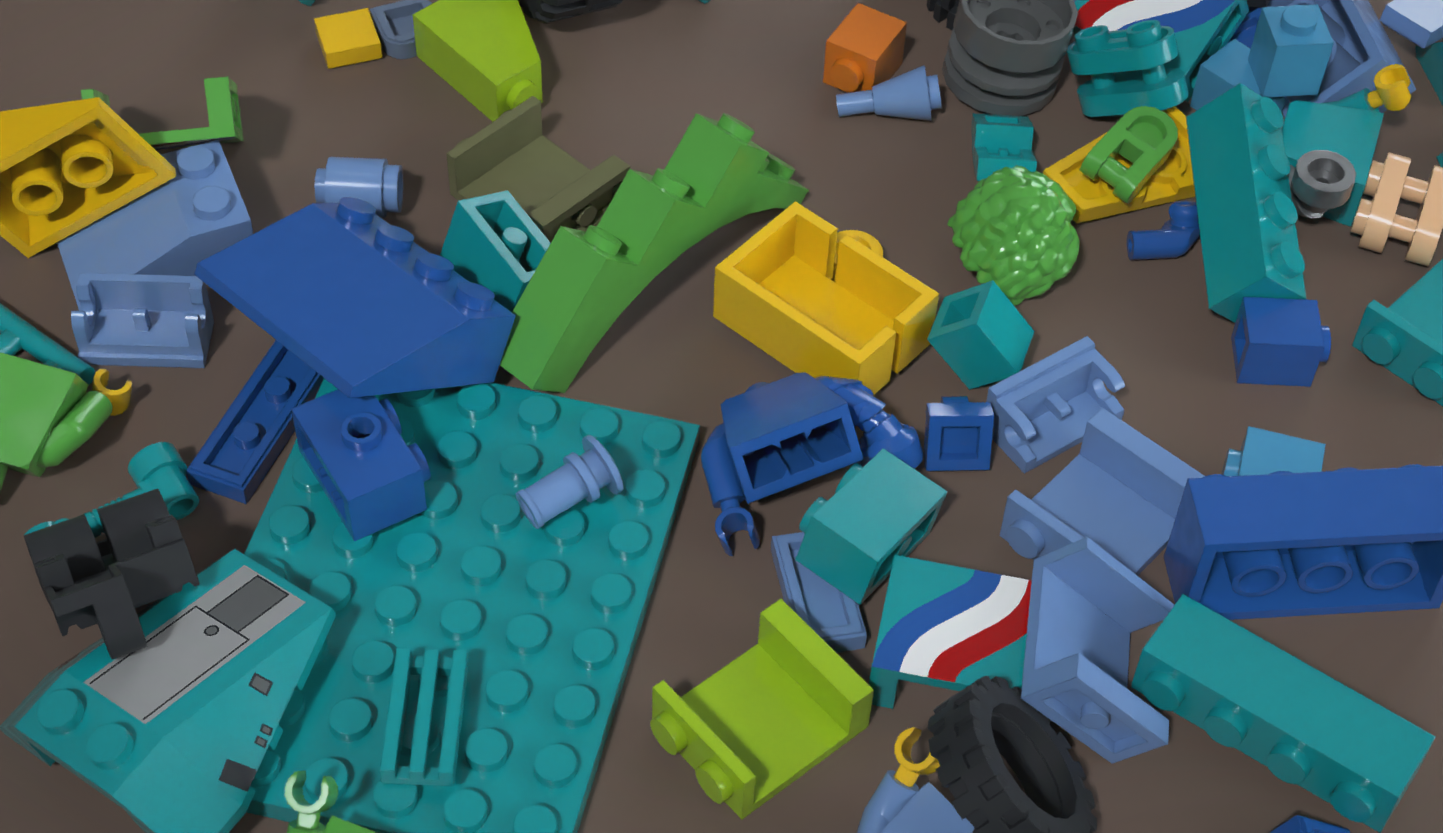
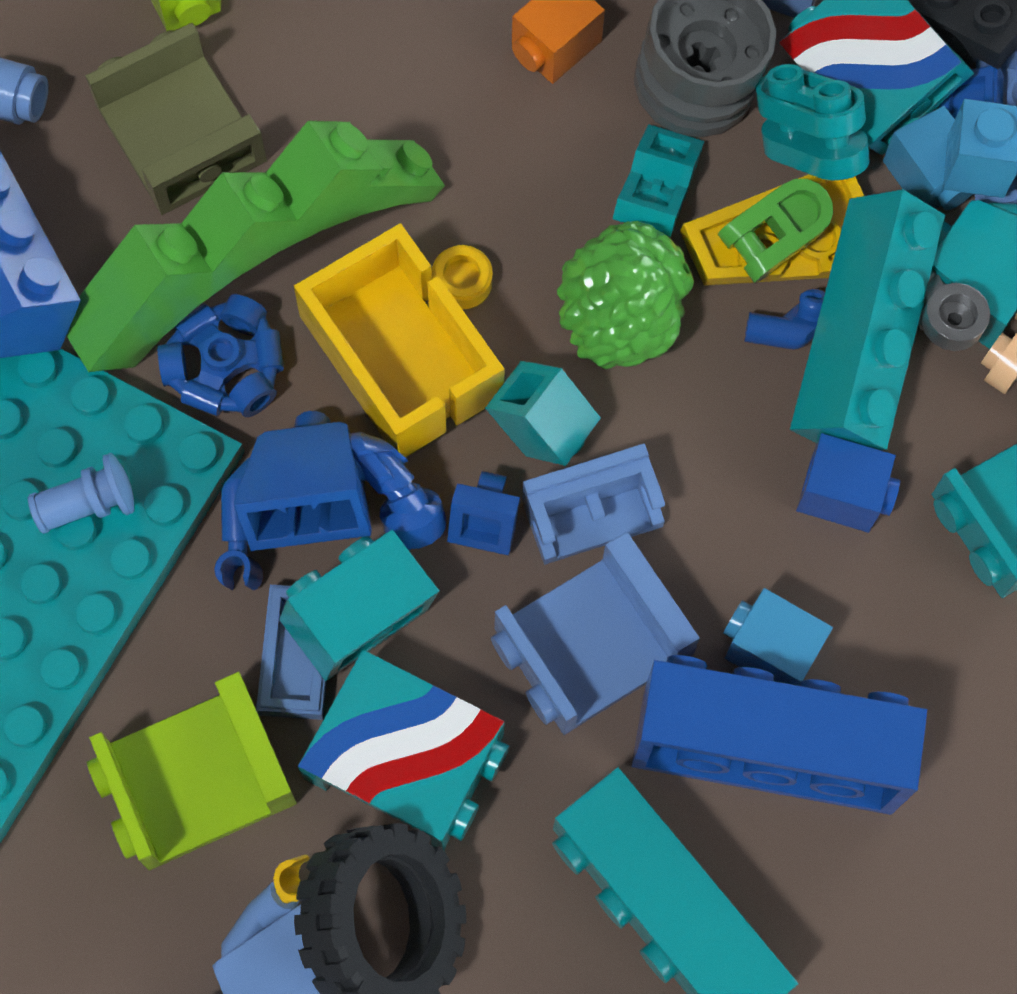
camera: 15 degrees right, 20 degrees up
(495, 245) = (98, 202): teal brick -> none
(662, 349) = (224, 358): none -> blue piece
(904, 96) = (583, 91): medium blue cone -> none
(1080, 649) = (507, 796): medium blue panel -> none

